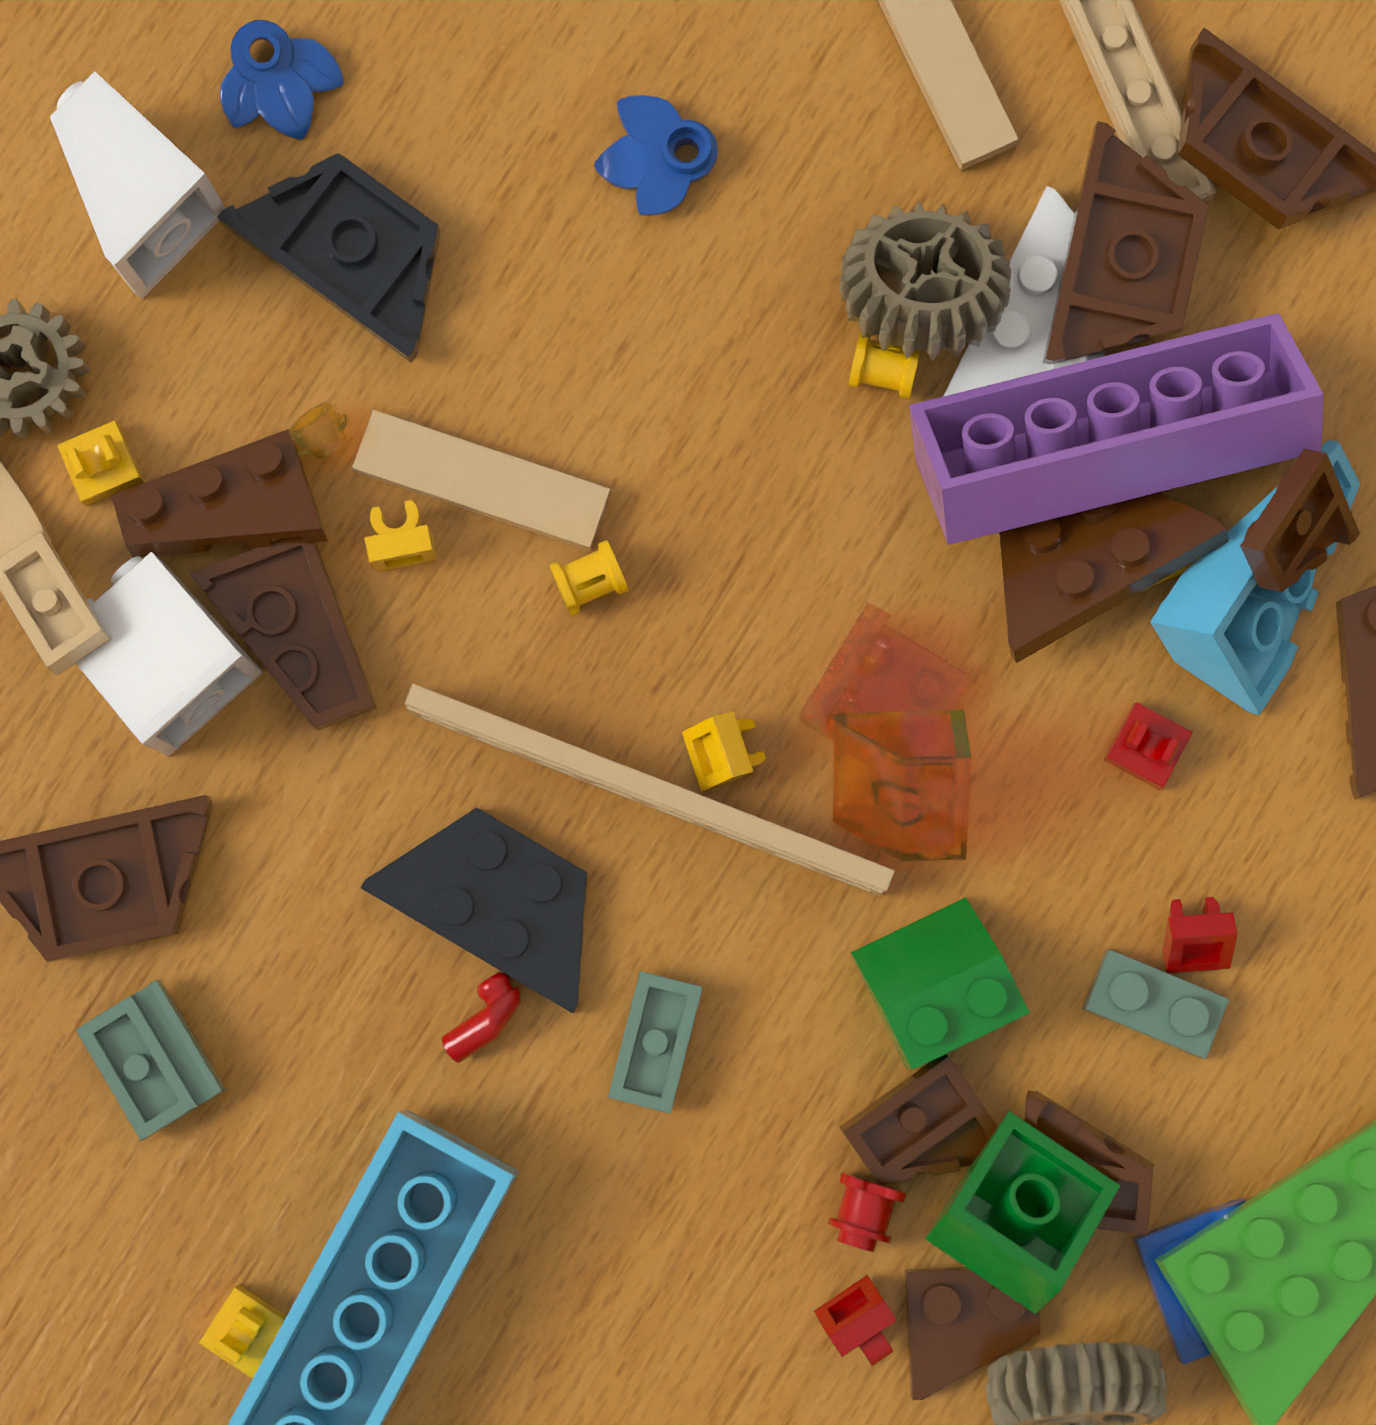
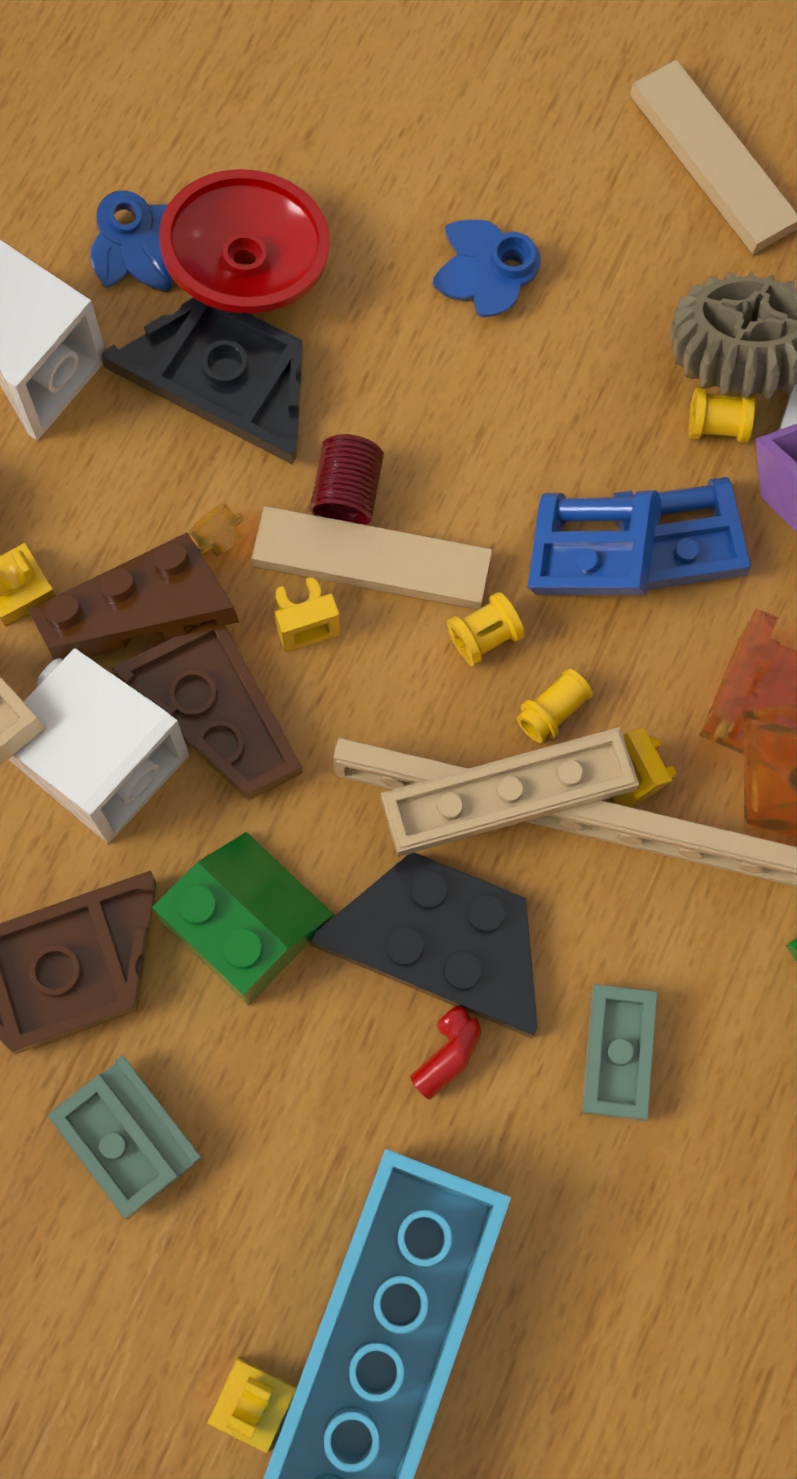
camera: 15 degrees left, 10 degrees down
(294, 852) = (242, 915): none -> green slope
(381, 69) = (250, 221): none -> red dish
(464, 393) = (347, 479): none -> dark red piece
(578, 765) = (509, 791): none -> tan tile
(648, 670) = (549, 710): none -> yellow pin
(715, 519) = (593, 559): none -> blue plate
(817, 515) = (699, 547): none -> blue plate

